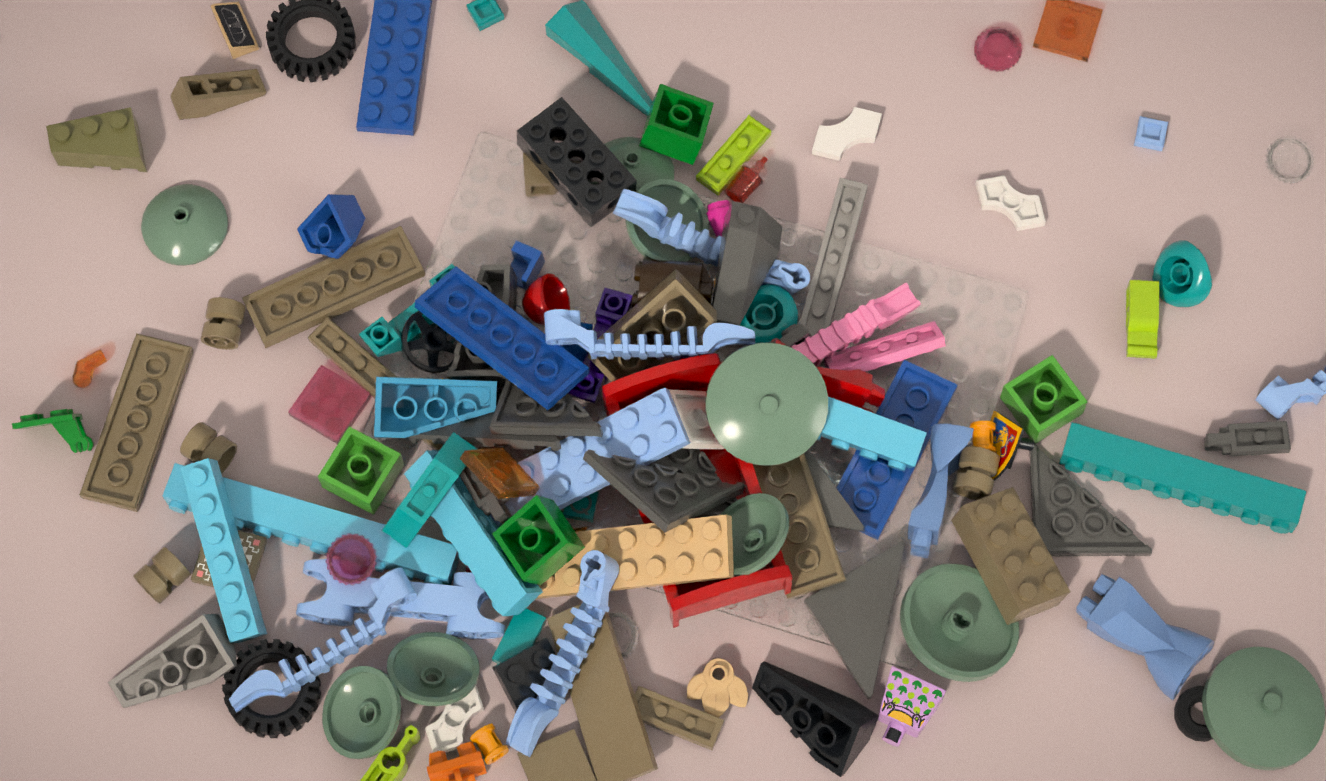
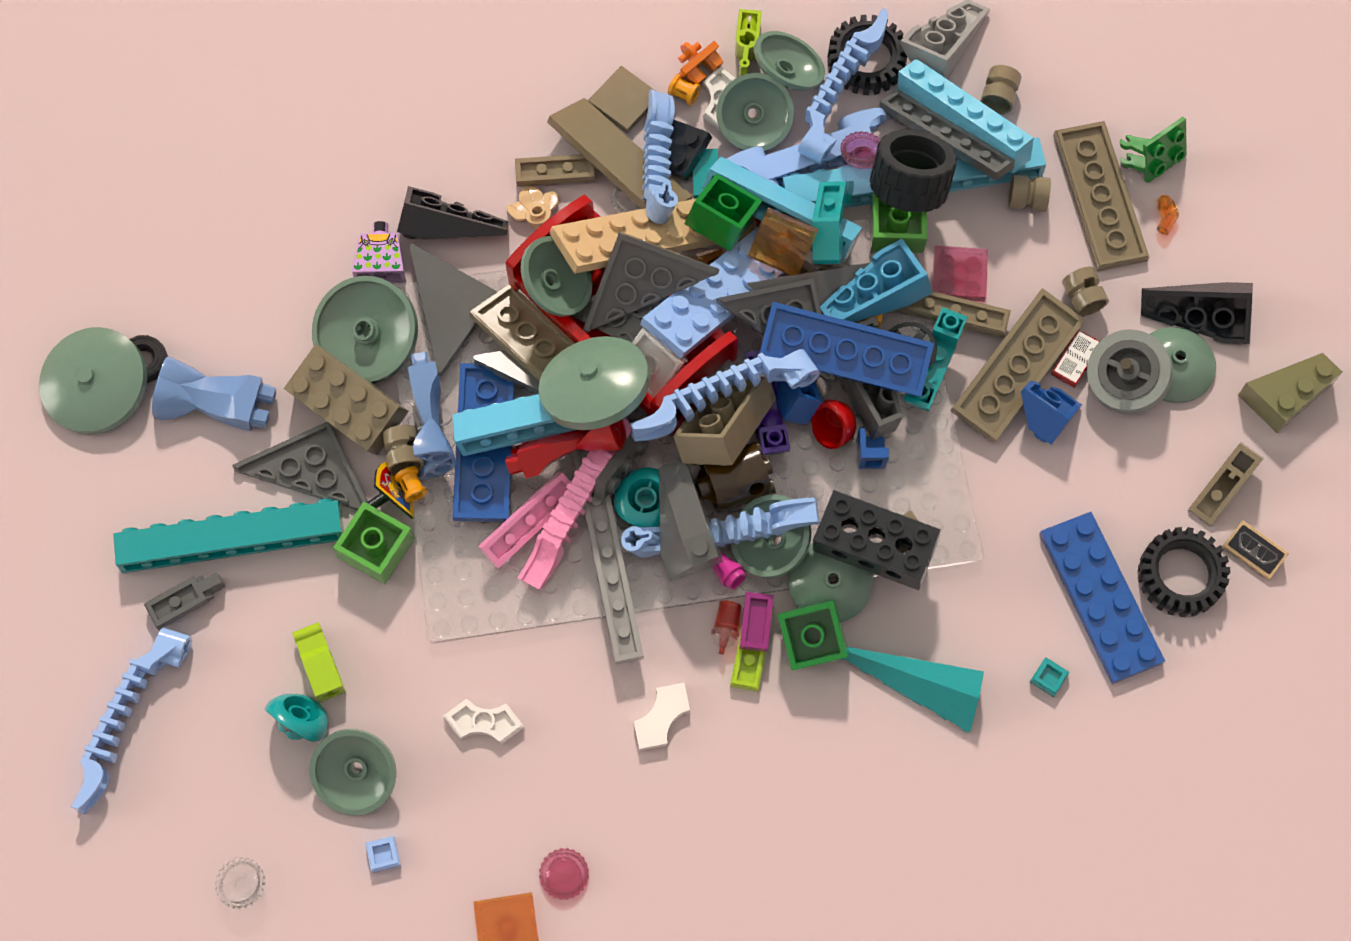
camera: 150 degrees right, 0 degrees up
(107, 247) = (1207, 309): none -> black wedge
(238, 221) = (1129, 371): none -> wheel
(254, 541) = (966, 145): none -> dark grey plate
(272, 269) = (1075, 359): none -> white tile
(289, 497) = (913, 170): none -> black tyre
(719, 167) = (756, 622): none -> magenta tile
(1151, 200) = (343, 785): none -> sand green dish

